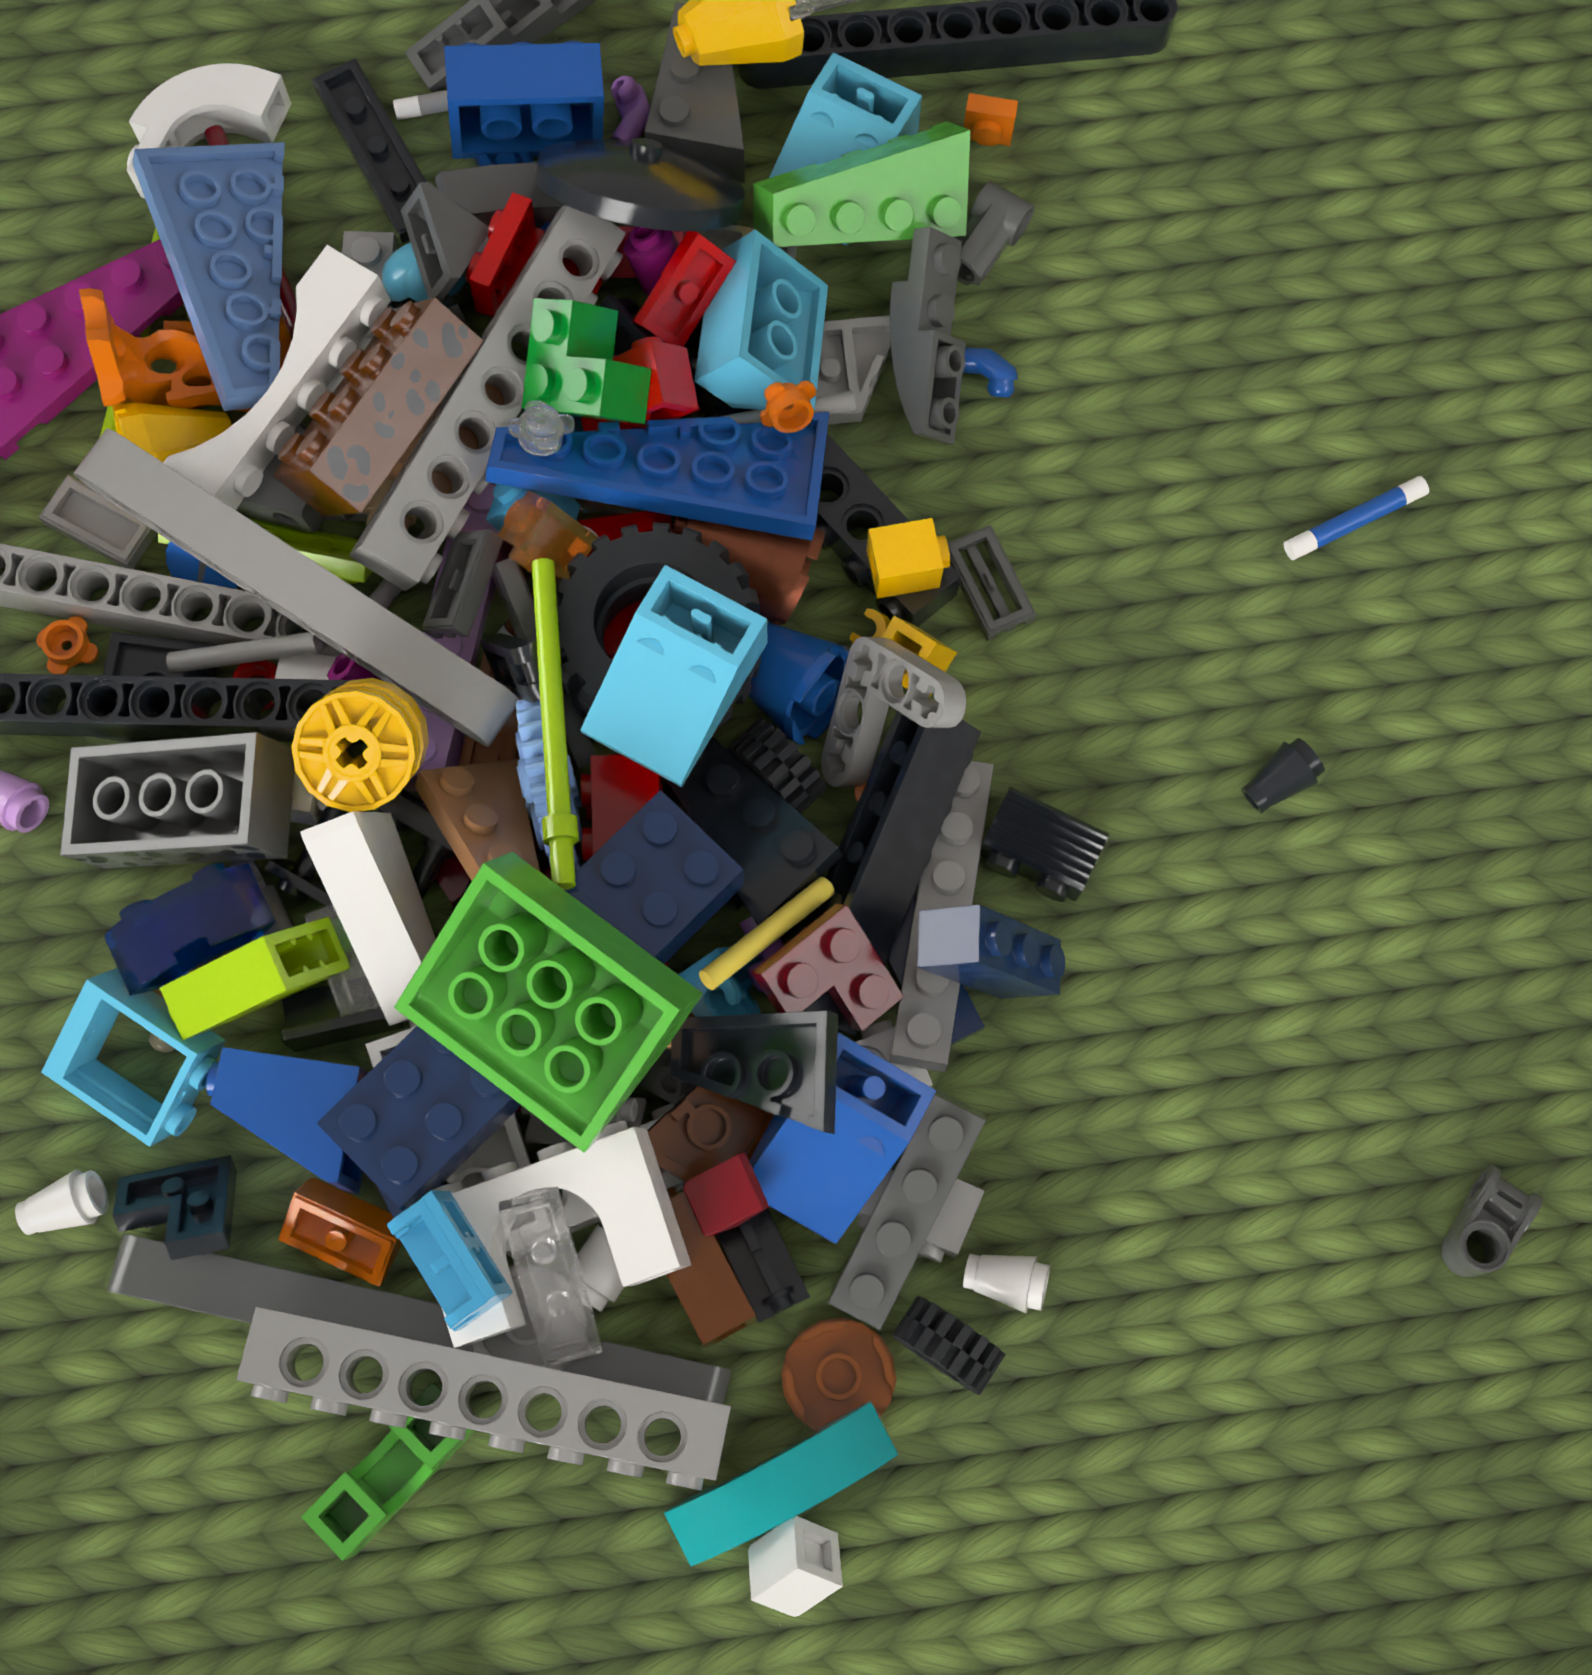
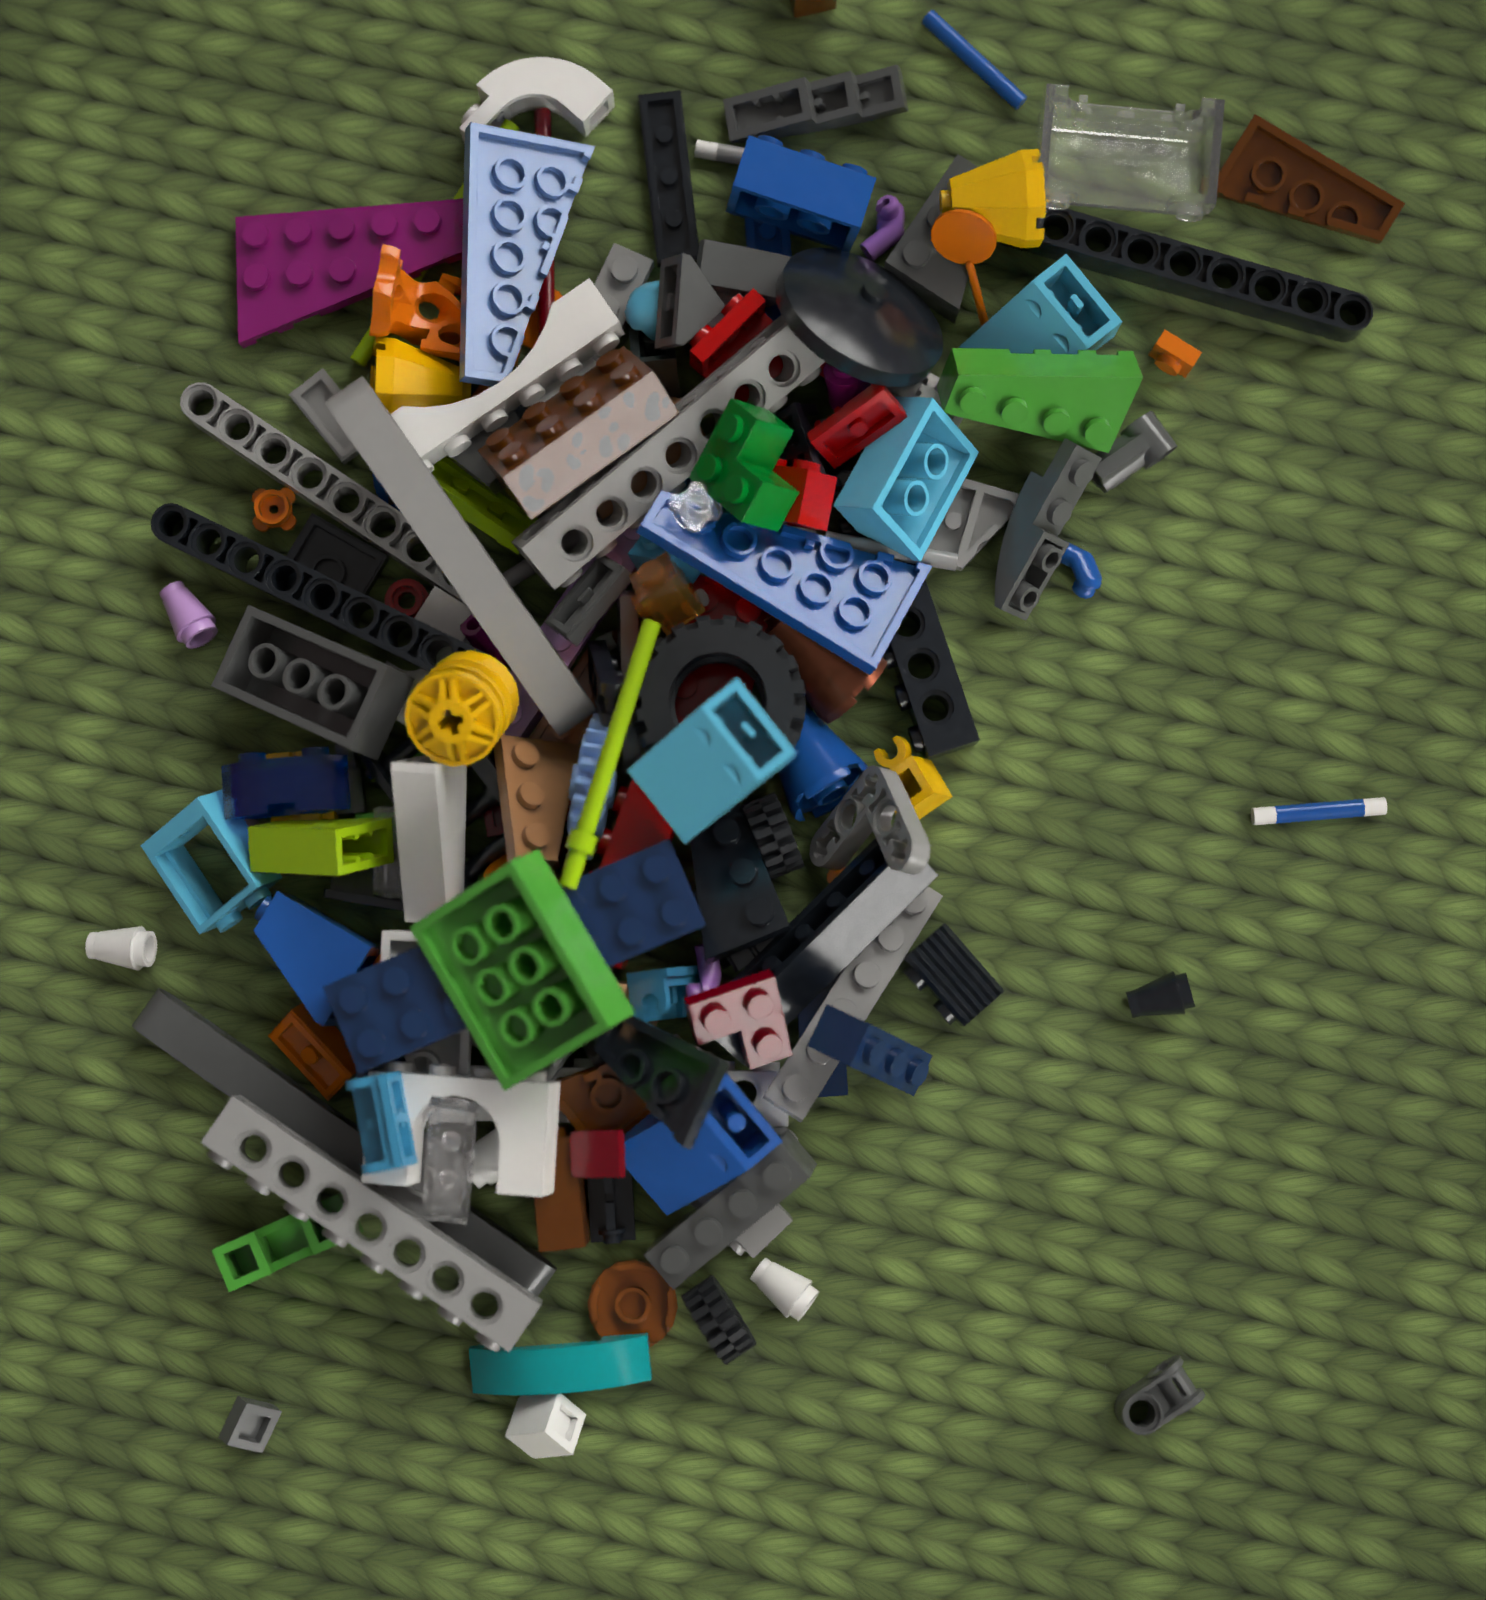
camera: 25 degrees right, 10 degrees up
(189, 1197) = (214, 978): black plate -> none
(243, 652) = (402, 577): light grey bar -> none
(720, 68) = (965, 240): none -> orange piece
(766, 933) = (708, 970): light yellow bar -> none
(788, 406) = (898, 557): orange plate -> none
(906, 557) = (941, 713): yellow brick -> none
(1007, 621) = (1005, 783): dark grey tile -> none

